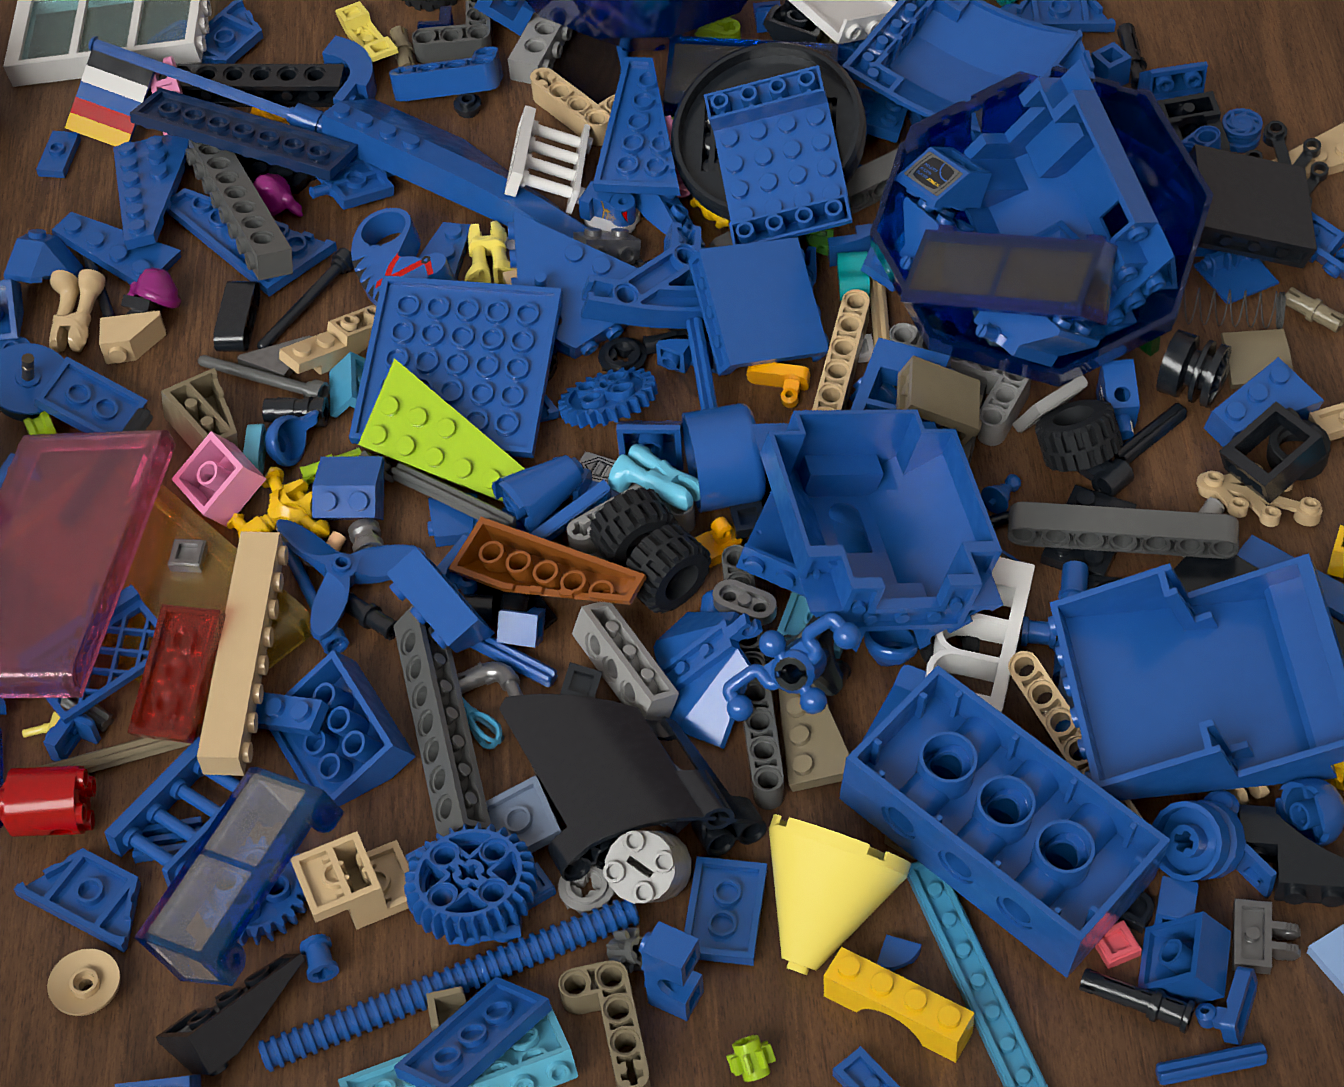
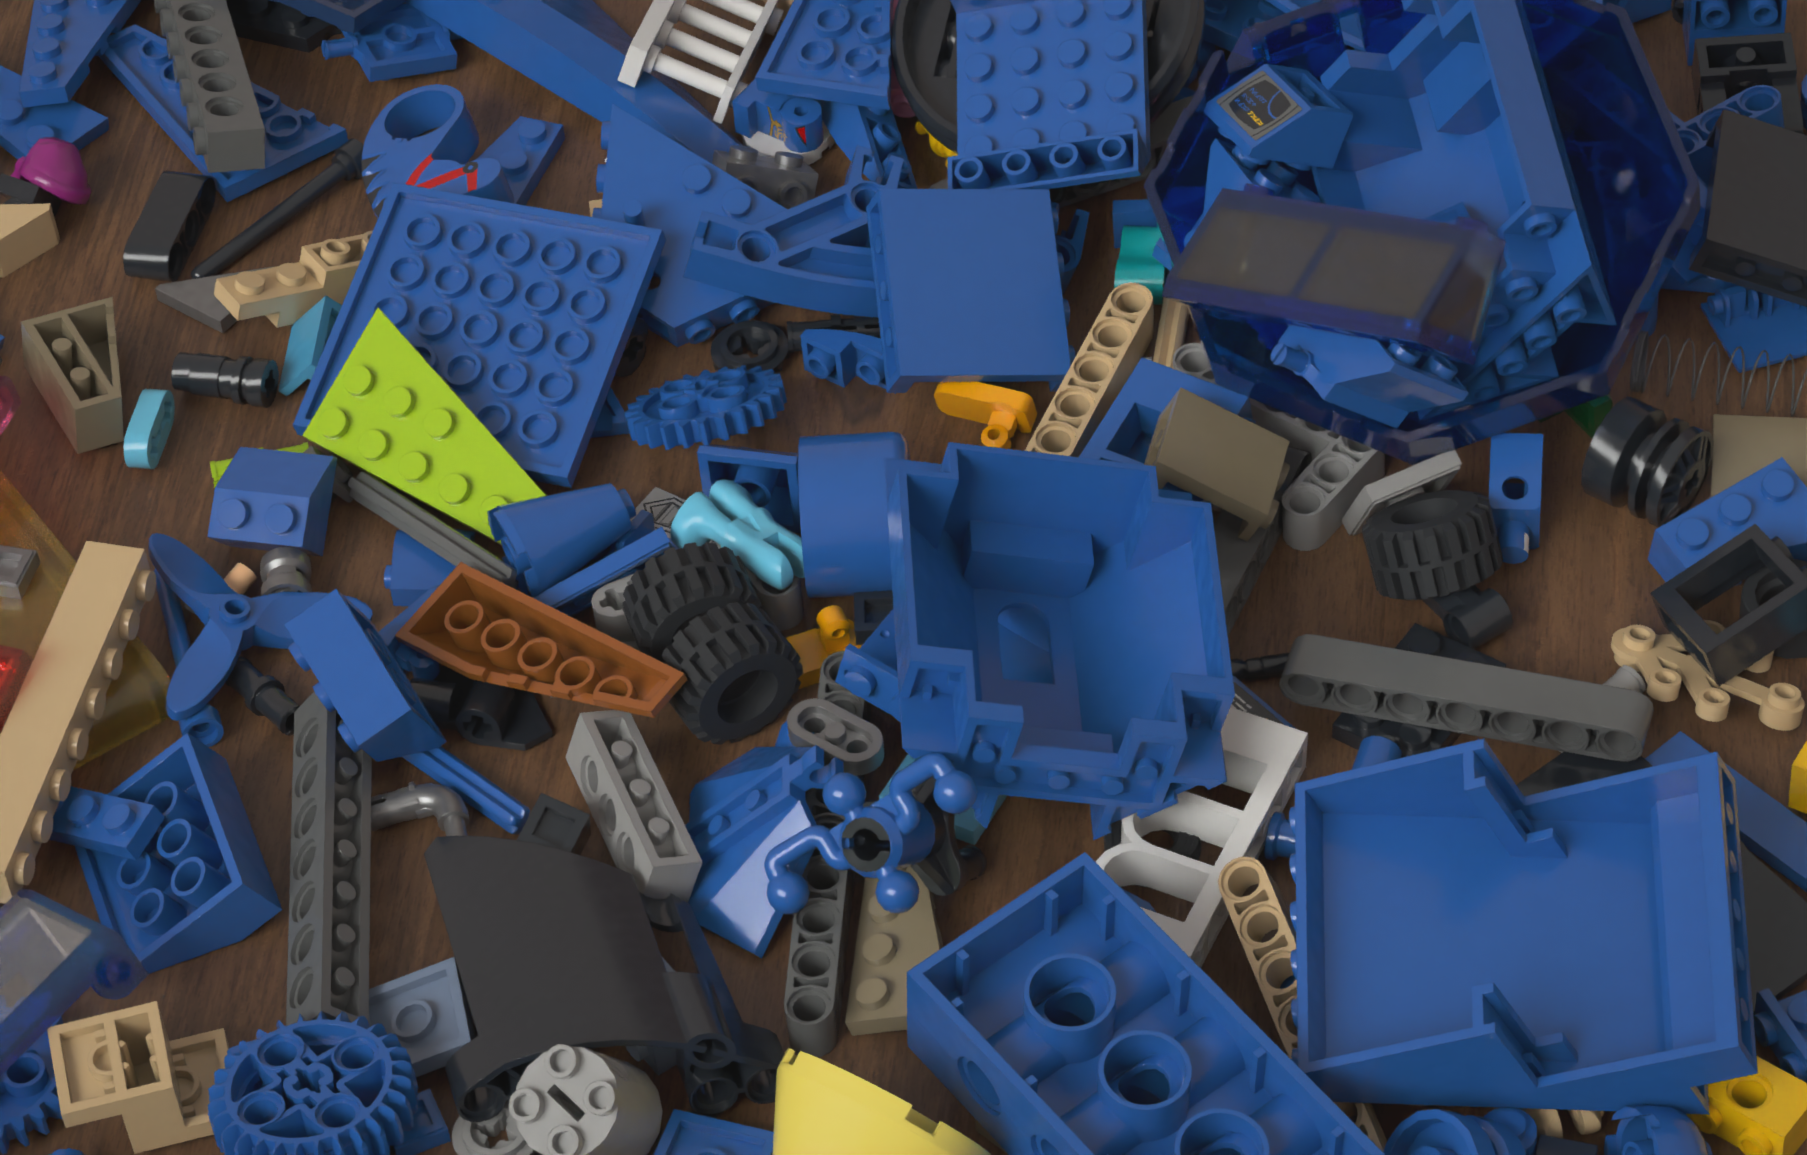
camera: 10 degrees right, 5 degrees down
(218, 478) = (79, 464): bright pink brick -> none
(277, 194) = (269, 49): magenta hat -> none
(286, 503) = (176, 511): yellow piece -> none
(287, 438) = (202, 416): blue hat -> none
(311, 388) = (255, 346): dark grey piece -> none
(474, 715) = (385, 861): dark azure piece -> none
(484, 246) = (570, 159): light yellow piece -> none
(521, 627) = (488, 736): panel -> none
(701, 363) = (863, 366): blue axle -> none
(820, 240) = (1101, 199): bright green tile -> none
(891, 646) = (1052, 829): blue hat -> none
(998, 496) = (1284, 625): blue piece -> none
(1152, 433) = (1560, 559): black axle -> none

